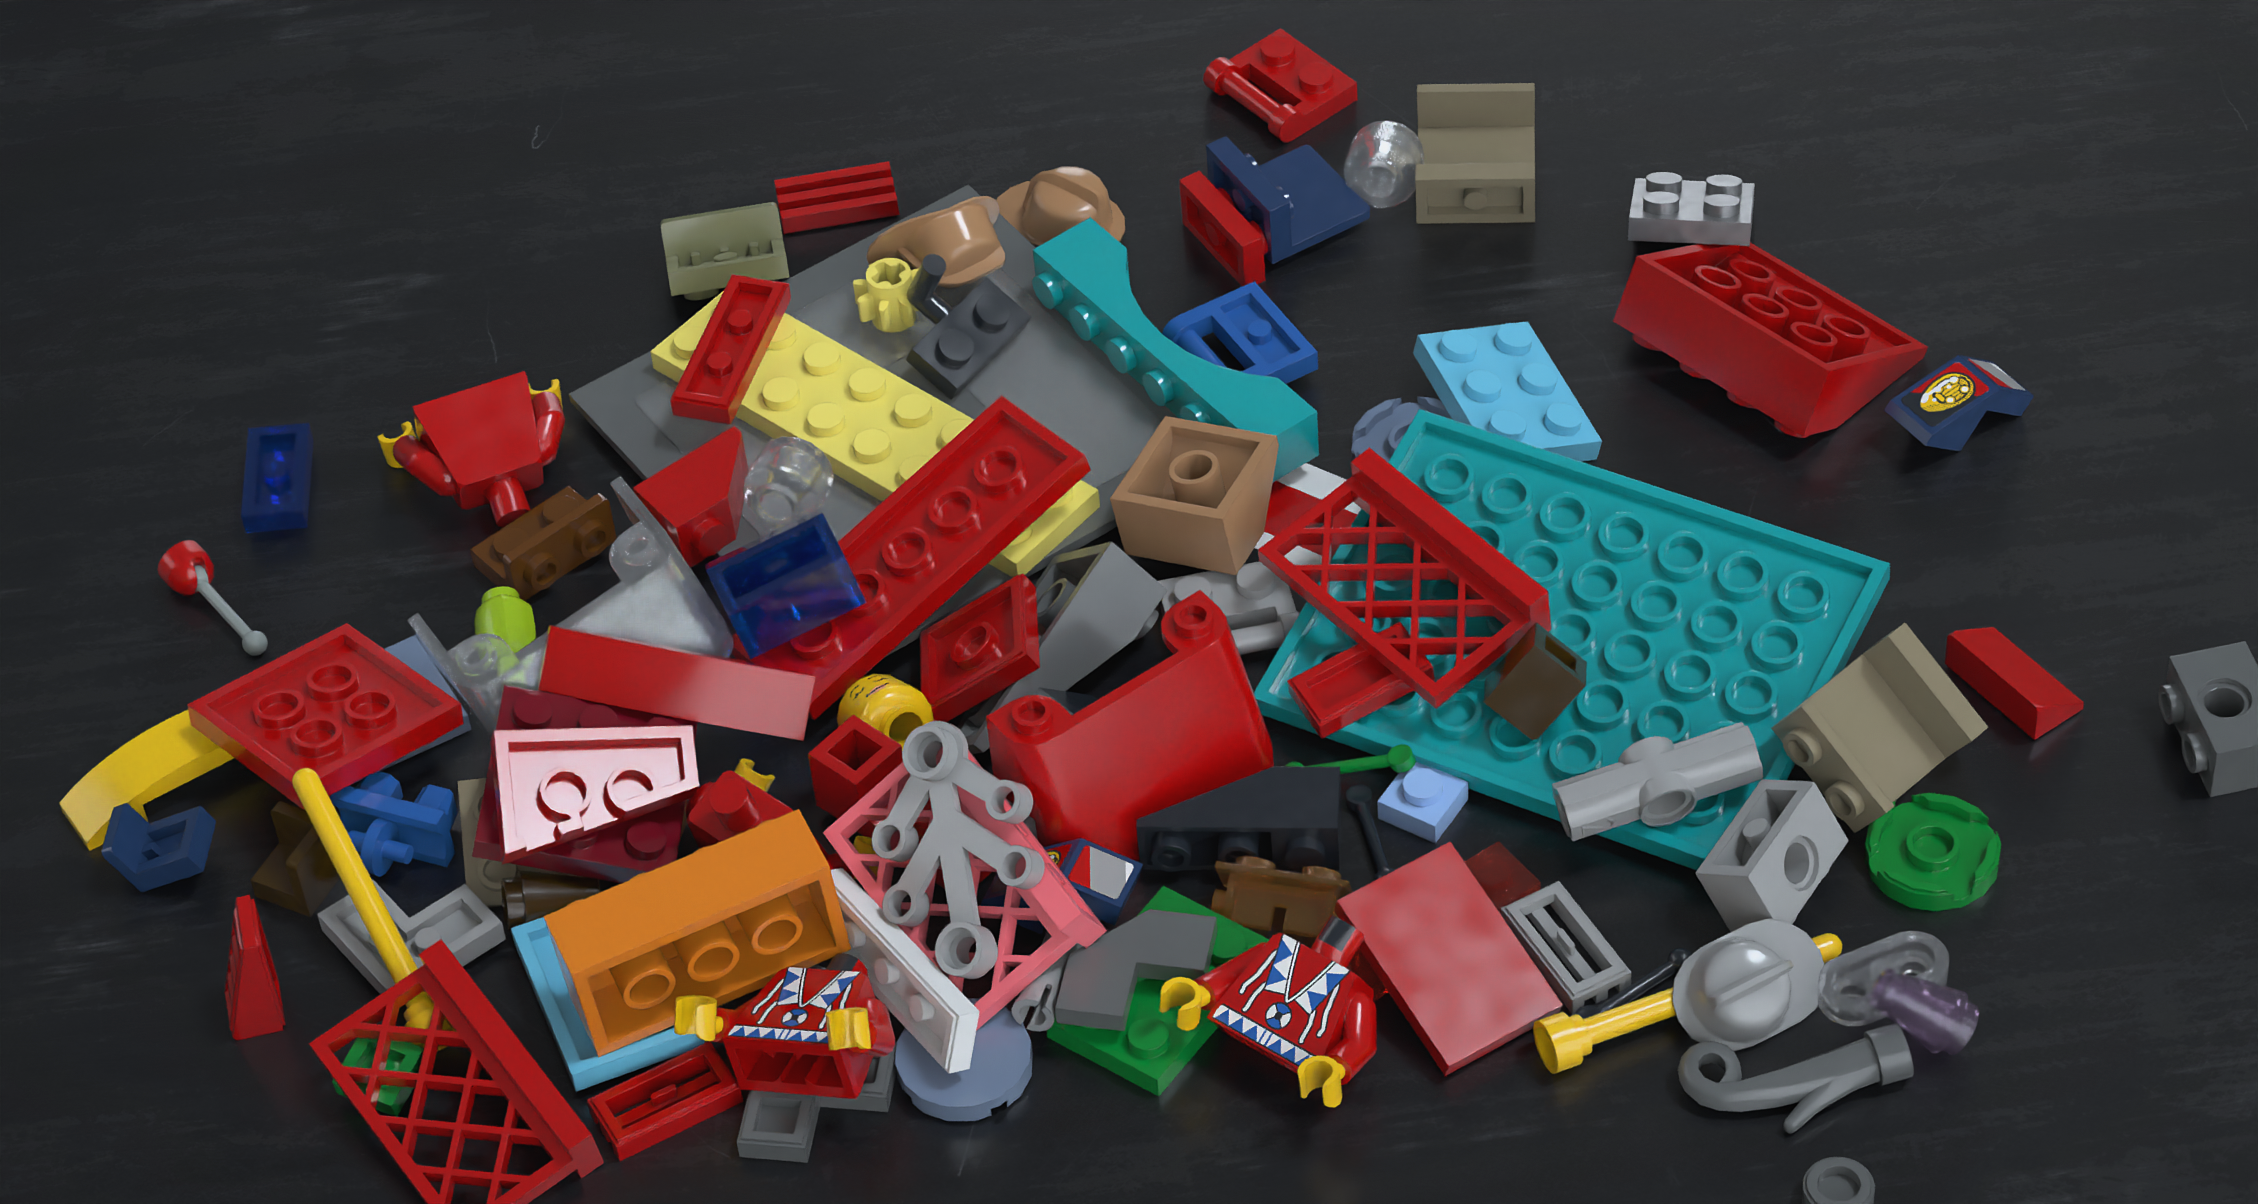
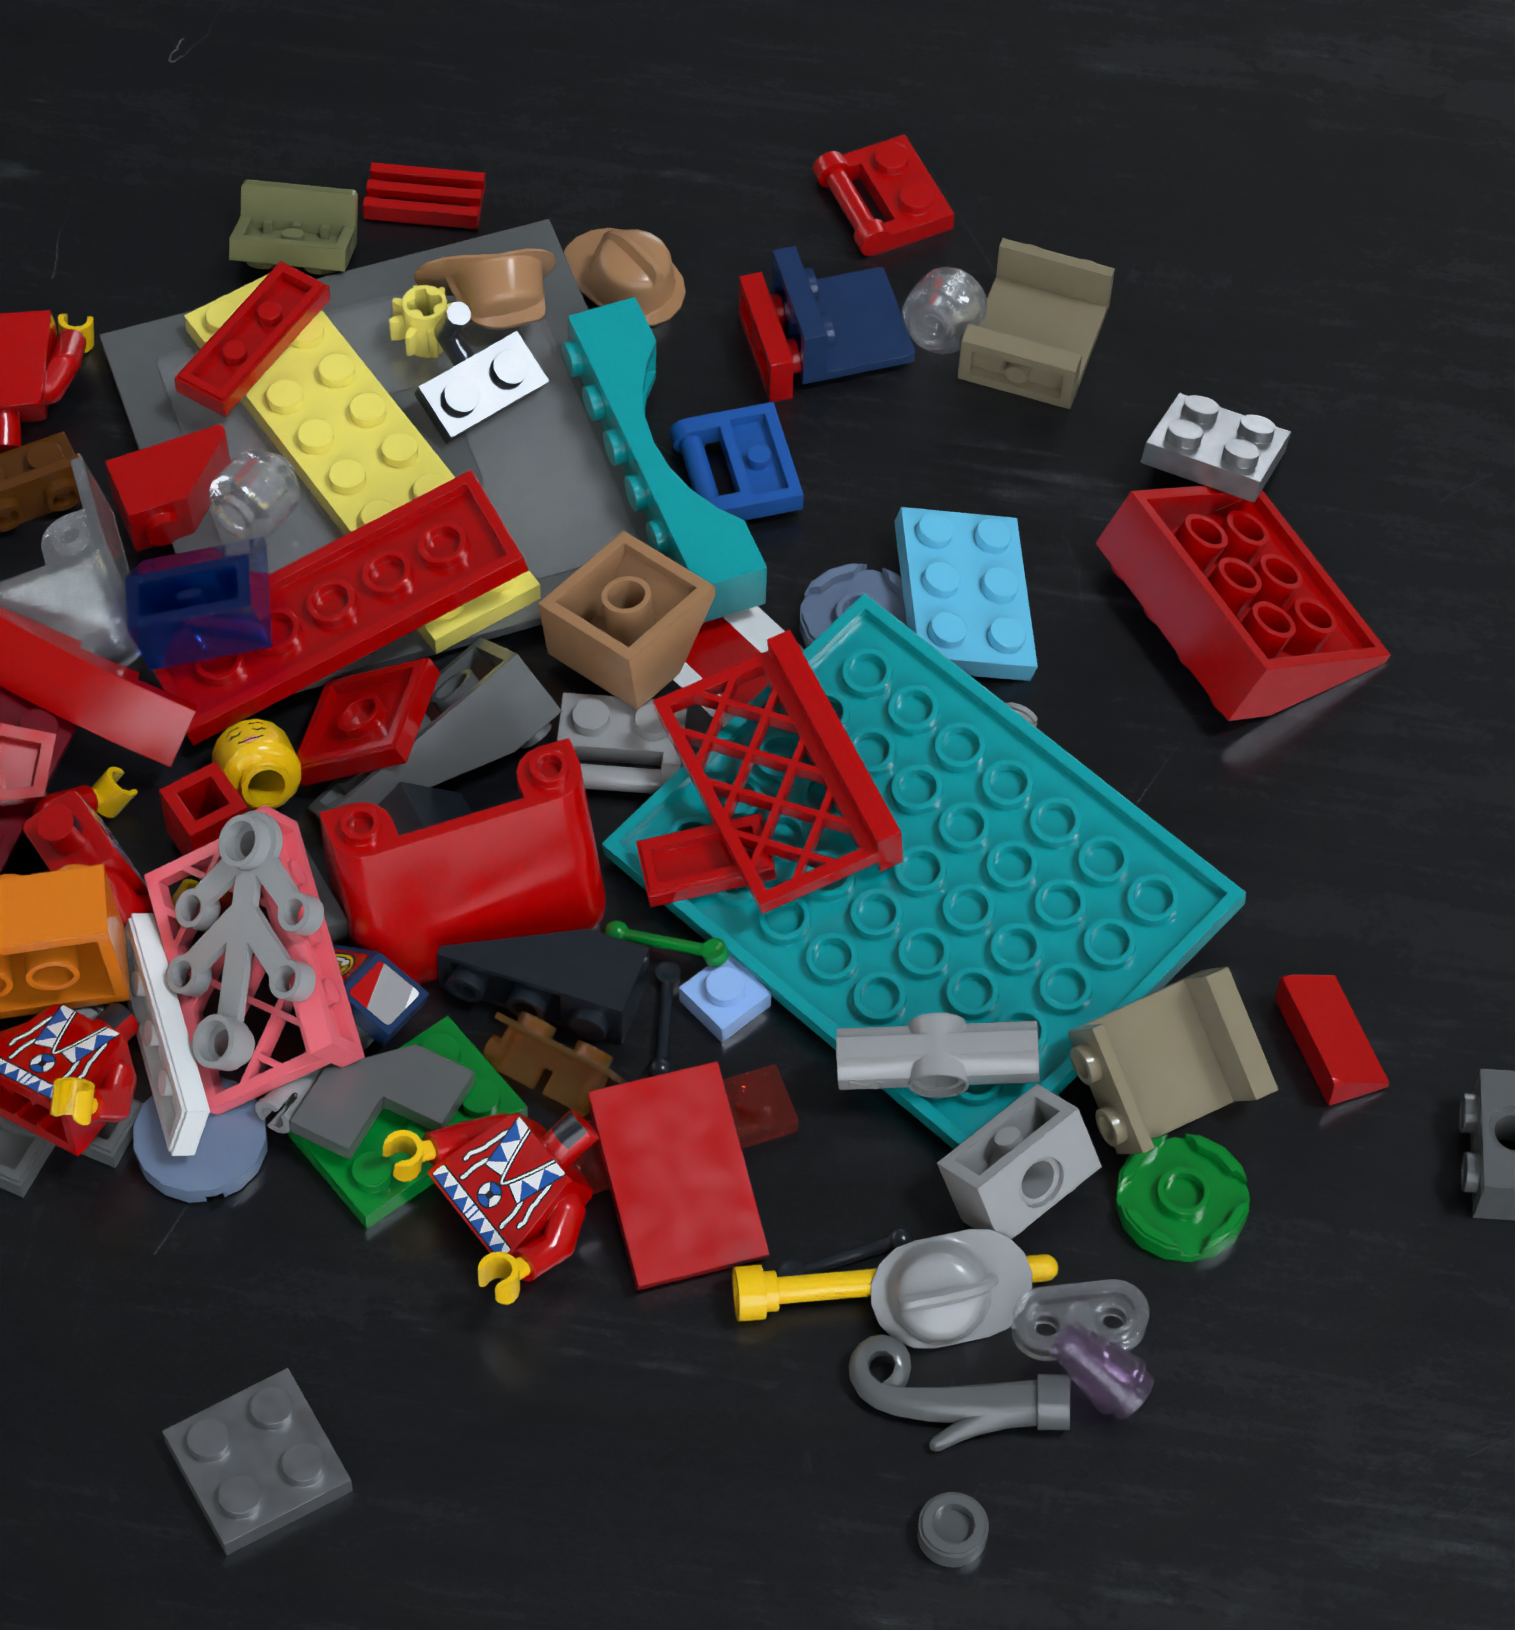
camera: 10 degrees right, 10 degrees up
(1535, 682) = (862, 916): dark brown panel -> none
(1590, 985) = (809, 1240): light grey tile -> none
(1954, 398) = (1385, 724): slope -> none

